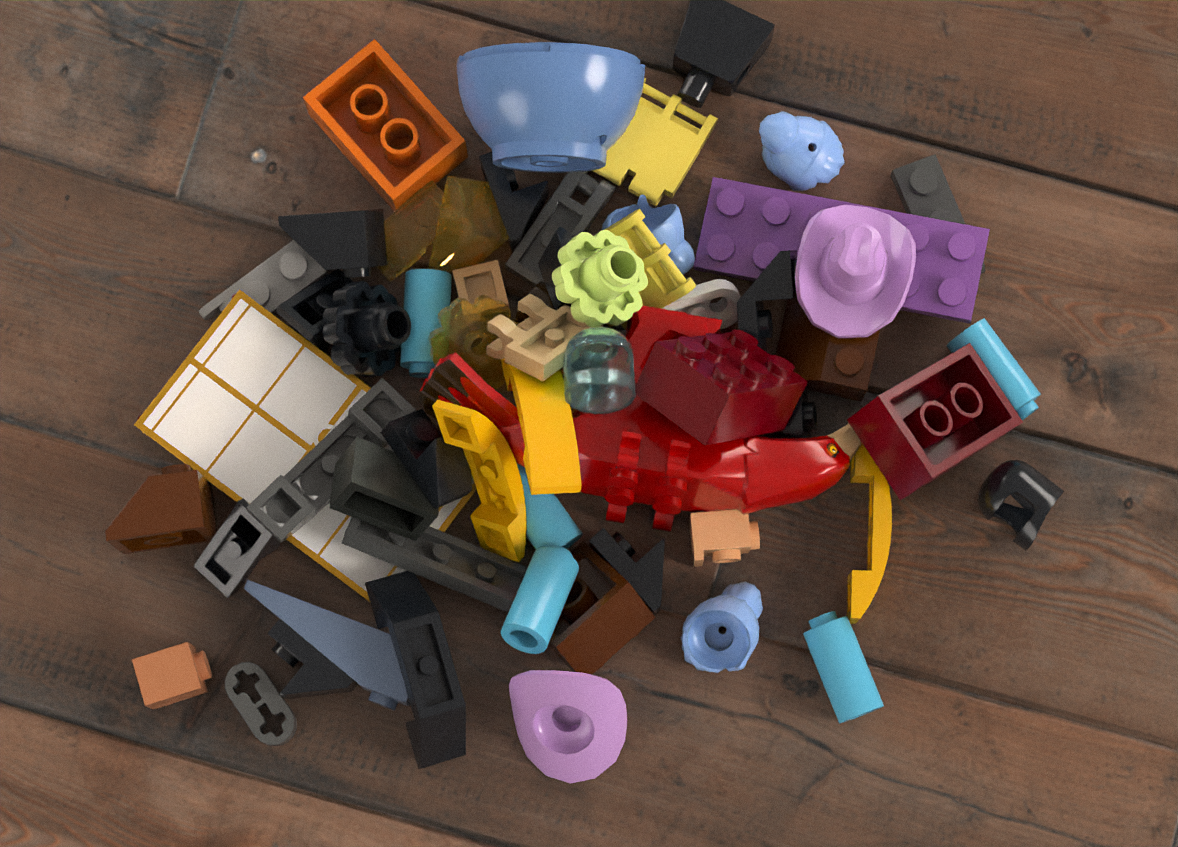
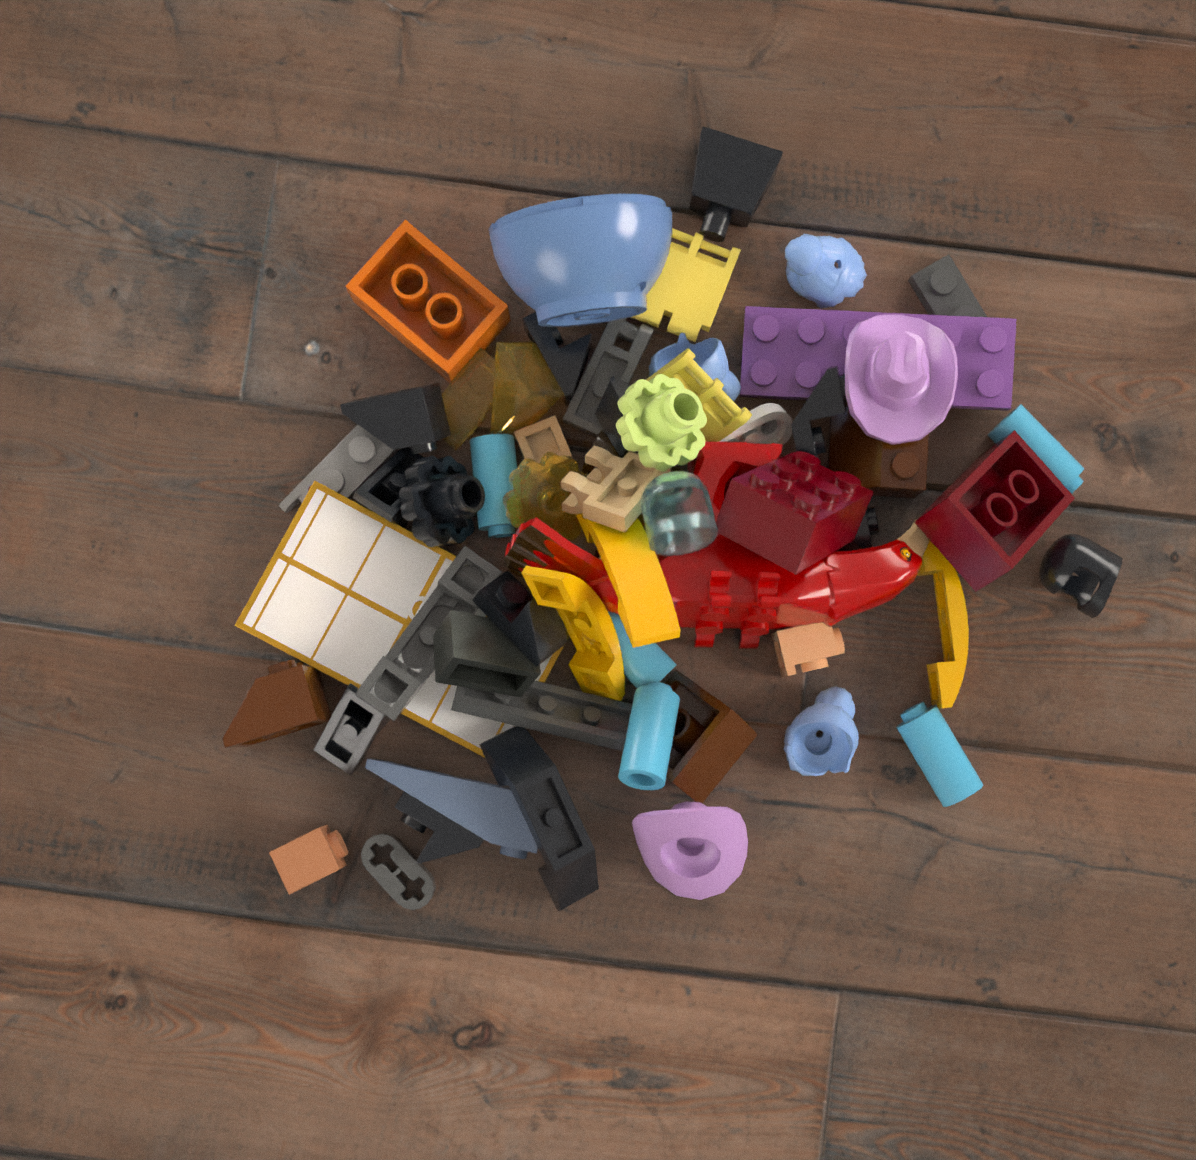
camera: 15 degrees left, 5 degrees up
(644, 575) = (740, 696): black slope -> none

